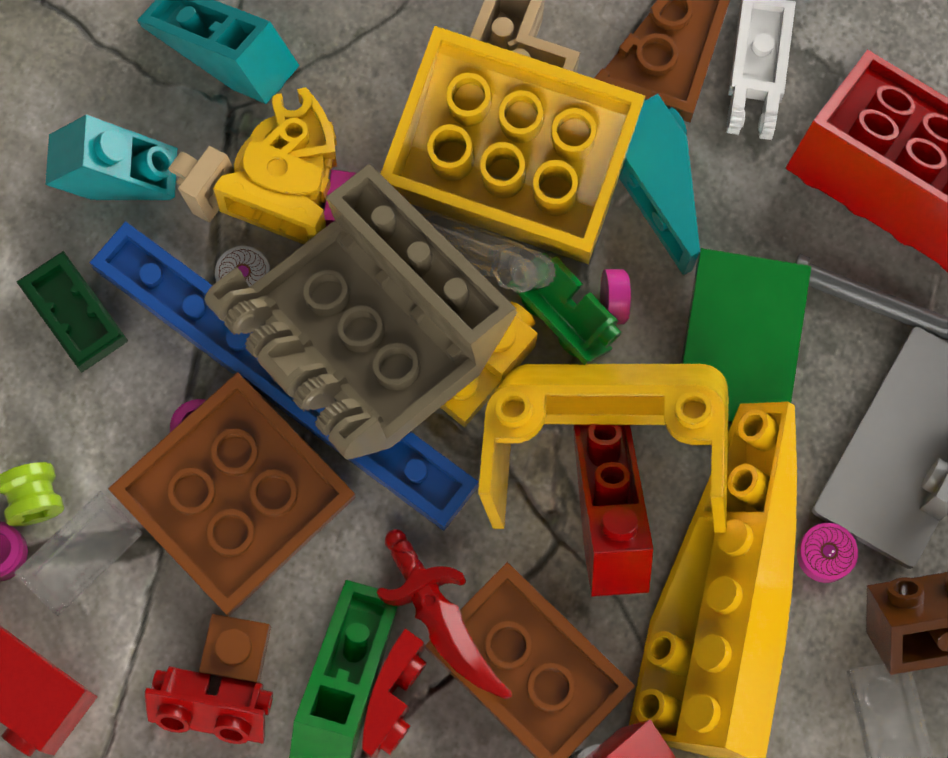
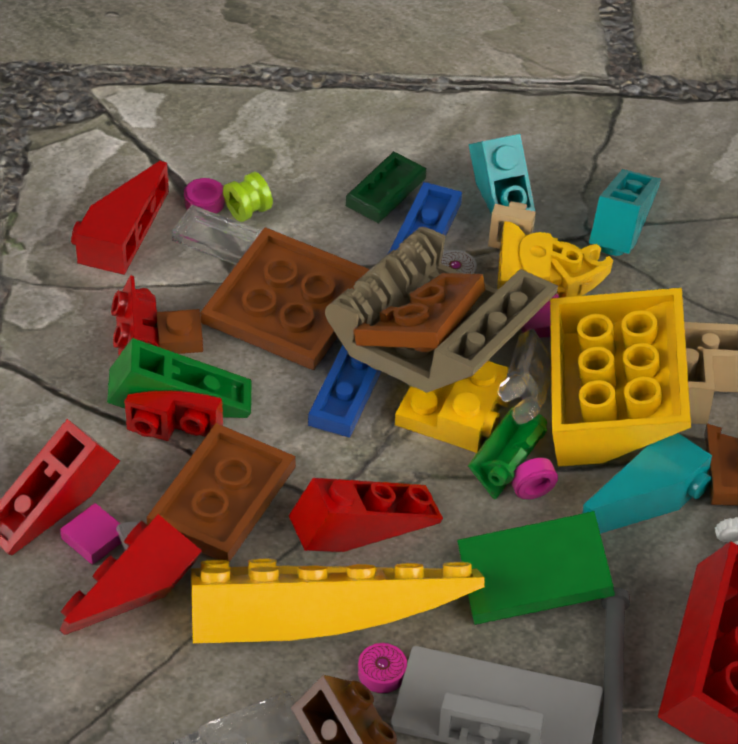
camera: 75 degrees right, 25 degrees down
(376, 333) = (429, 316): none -> dark orange wing
(440, 615) = (242, 422): red piece -> none
(682, 396) = (446, 511): yellow windscreen -> none

